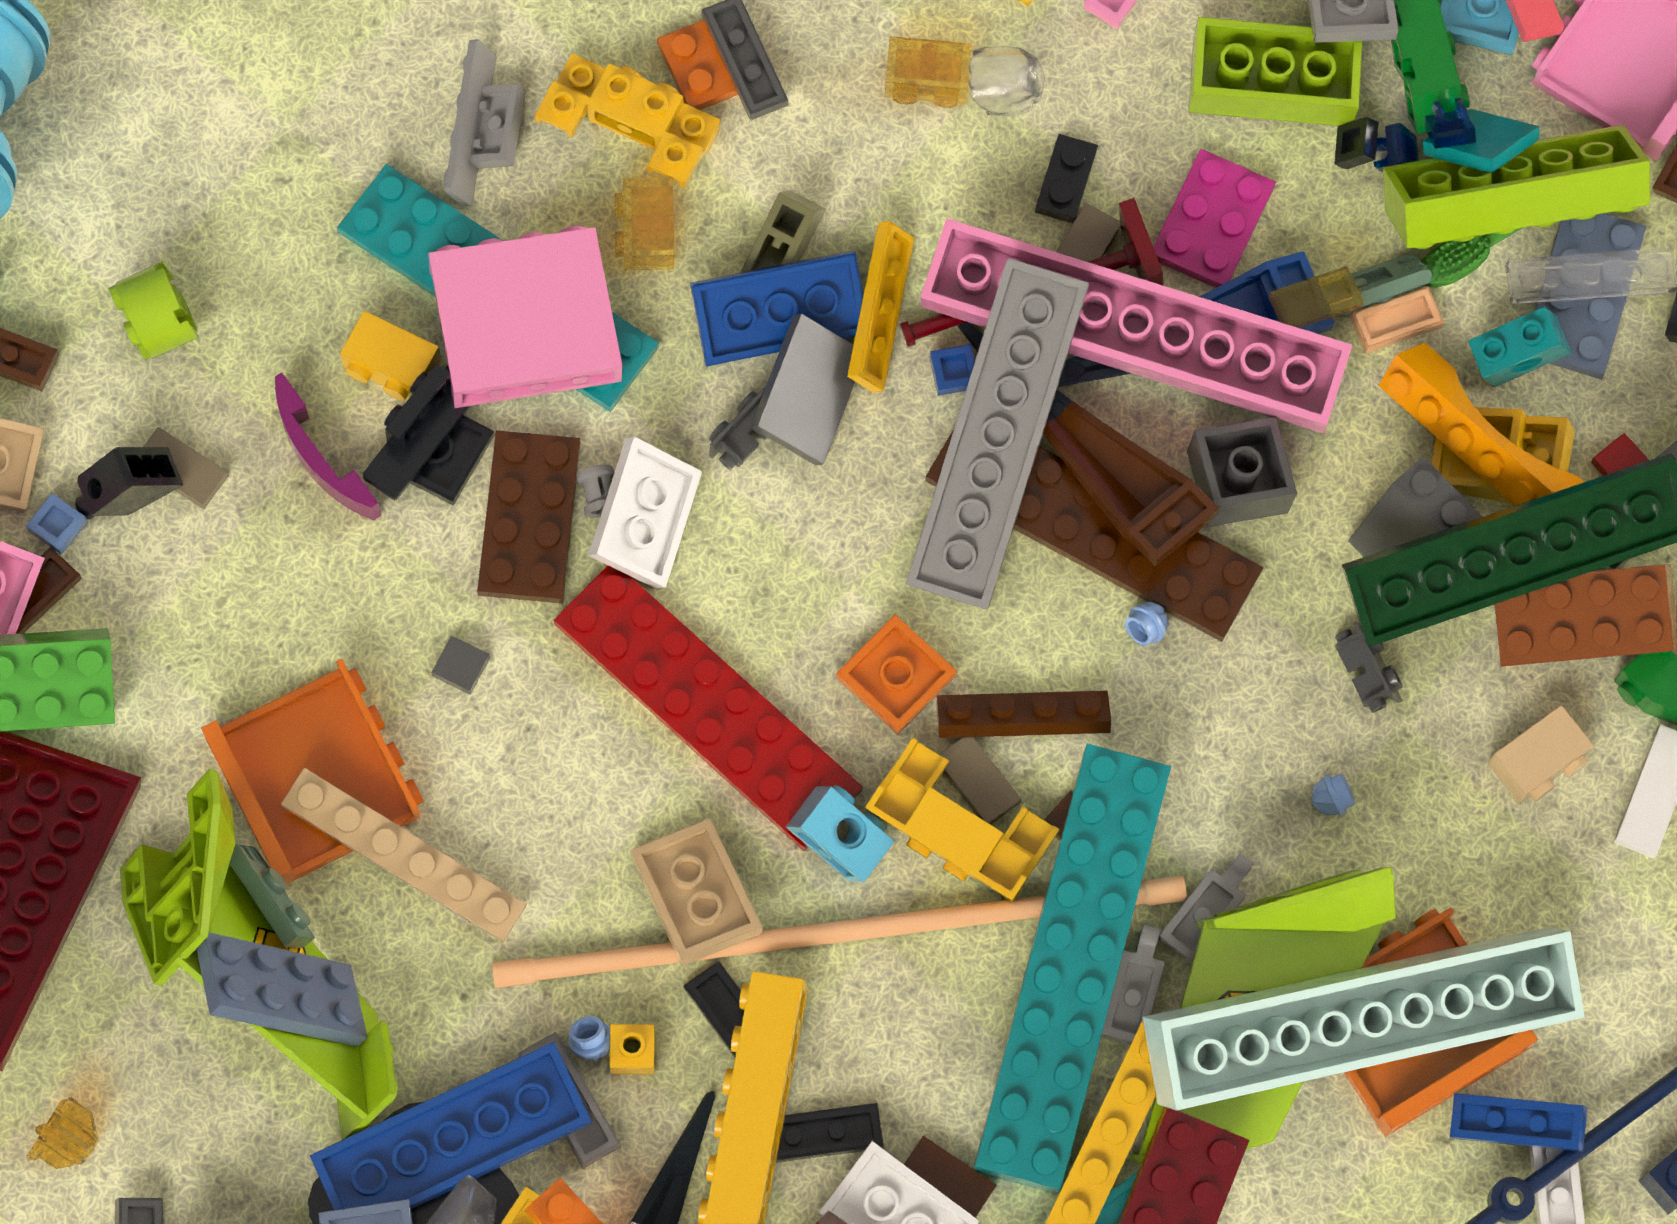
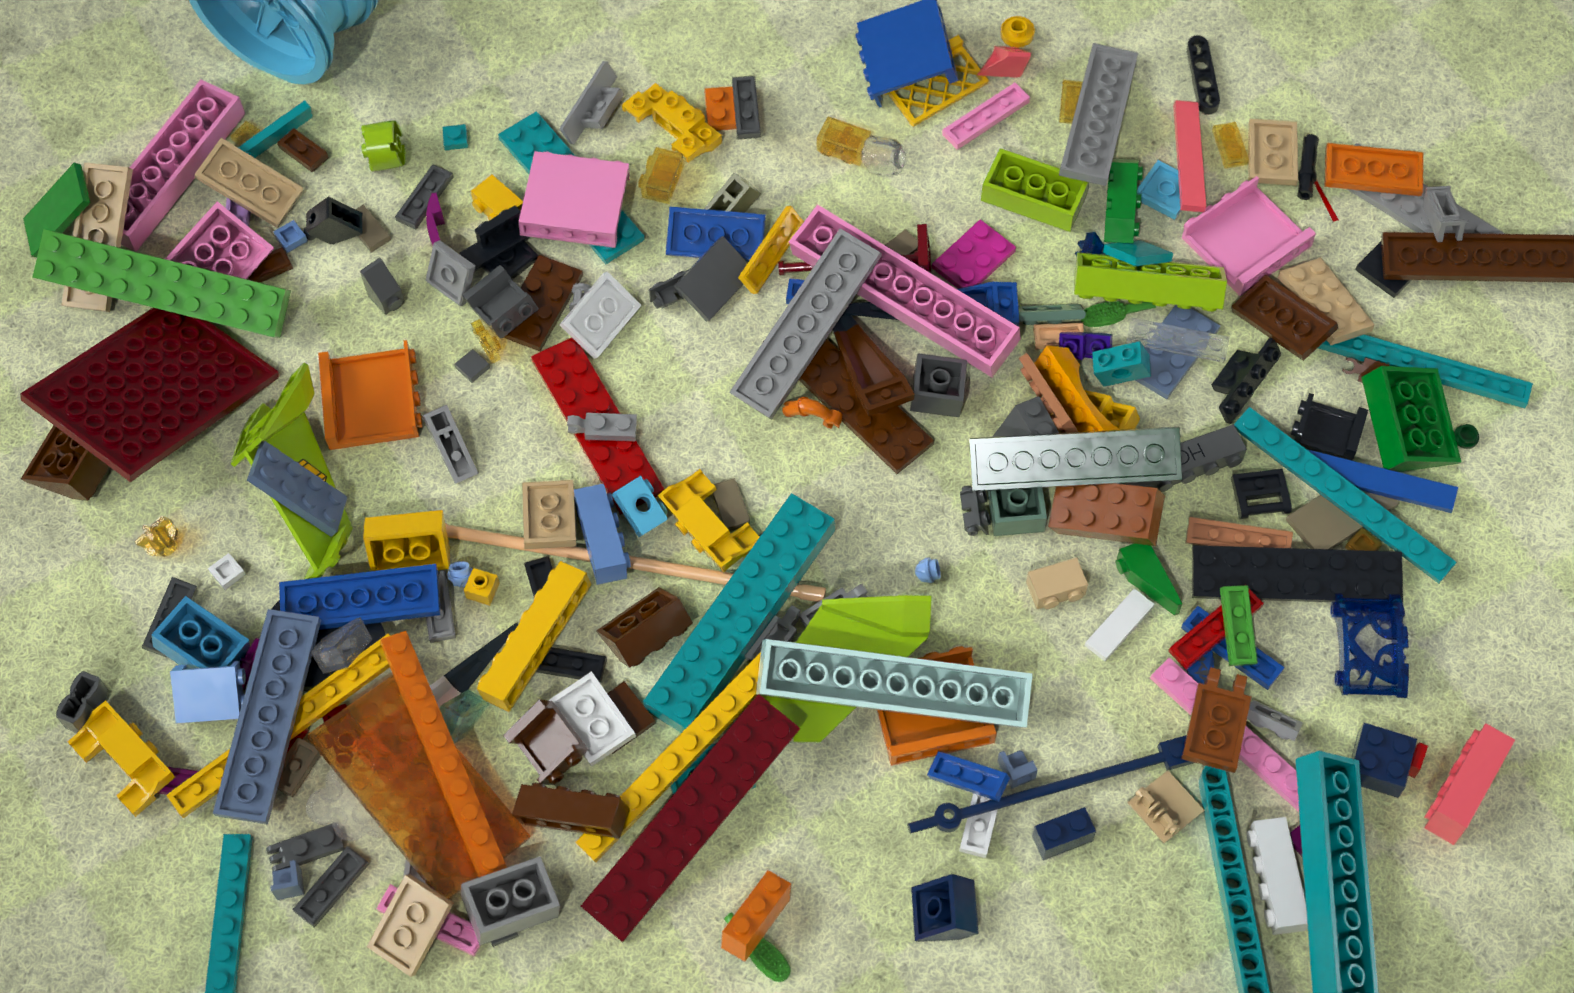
camera: 25 degrees right, 10 degrees down
(201, 1156) = (226, 571): none -> white plate
(254, 379) = (415, 207): none -> dark grey tile
(260, 575) = (382, 286): none -> dark grey slope
(264, 252) = (455, 137): none -> teal plate
(268, 892) = (316, 446): sand green hinge -> none
(365, 515) = (449, 272): none -> light grey tile
(403, 855) = (400, 450): tan plate -> none
(471, 542) = (500, 302): none -> dark grey panel
(477, 620) = (490, 345): none -> clear yellow plate
(481, 816) = (450, 444): none -> light grey slope
(489, 1018) = (407, 540): none -> yellow brick
(731, 710) = (604, 426): none -> light grey plate
(796, 900) = (601, 534): none -> medium blue brick
(896, 674) = (706, 437): orange plate -> none
(922, 1033) = (645, 627): none -> reddish brown slope
(1023, 714) = (768, 477): reddish brown plate -> none
(1044, 575) = (806, 406): none -> orange piece
(1066, 178) = (900, 215): black plate -> none
(1147, 623) = (856, 450): light blue plate -> none
(1316, 298) = (1014, 306): clear yellow tile -> none
(1356, 143) = (1068, 239): black plate -> none
(1426, 444) = (1049, 400): none -> nougat plate
(1441, 655) = (1017, 511): none -> sand green brick
(1448, 324) = (1084, 343): none -> dark purple slope
(1449, 128) = (1121, 240): clear blue tile -> none
(1581, 1080) = (1017, 768): none -> sand blue panel

